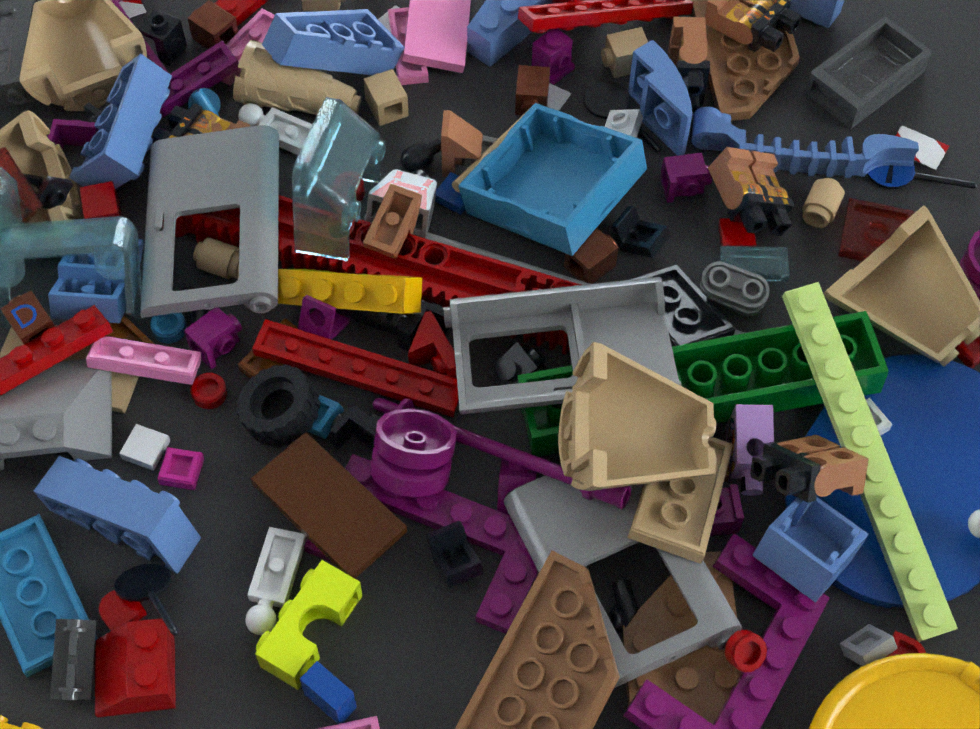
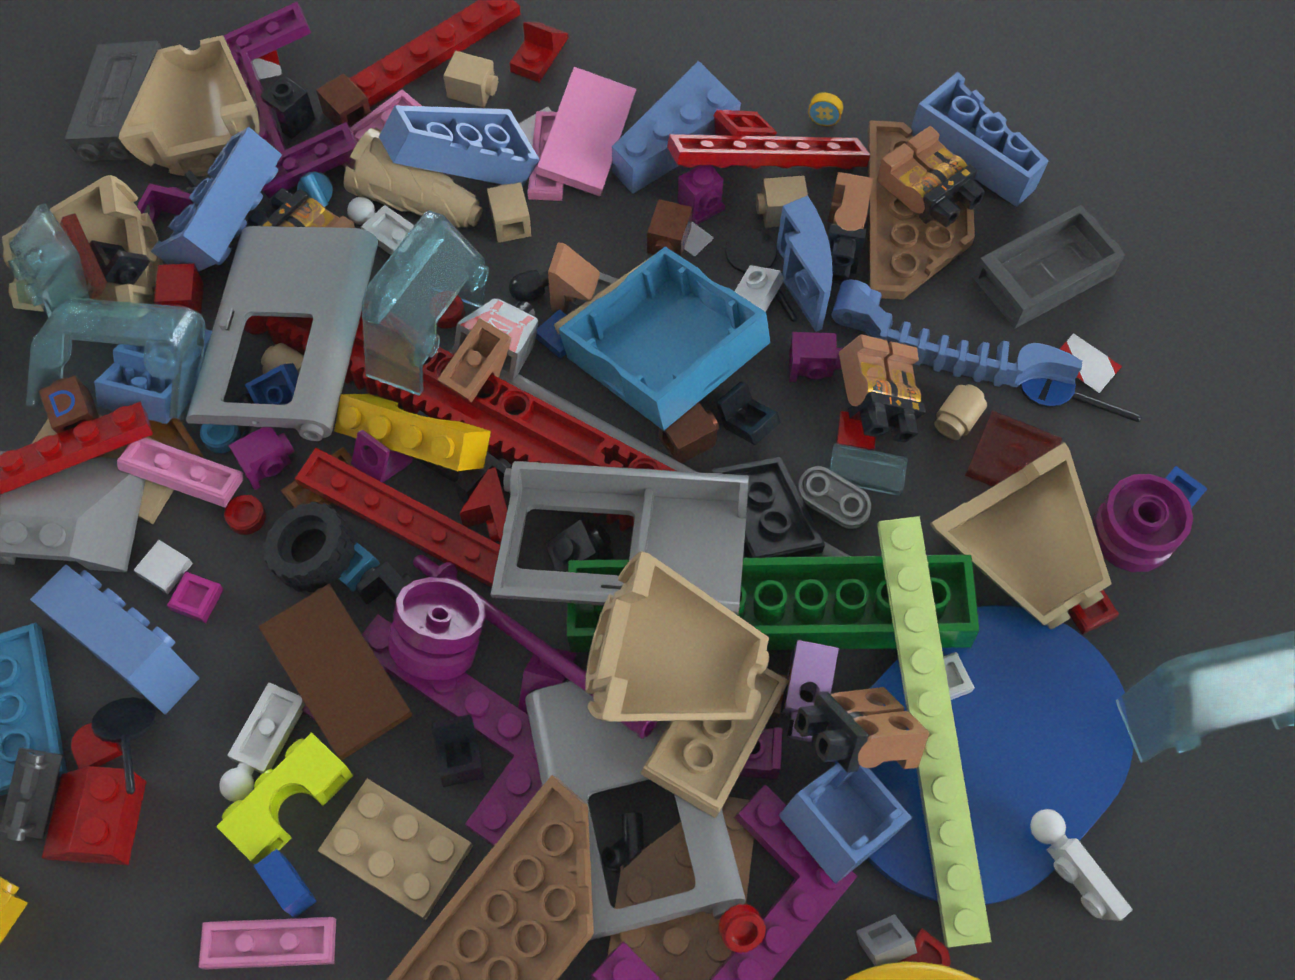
camera: 10 degrees right, 5 degrees up
(215, 272) = (274, 386): none -> blue piece
(417, 649) = (395, 848): none -> tan plate

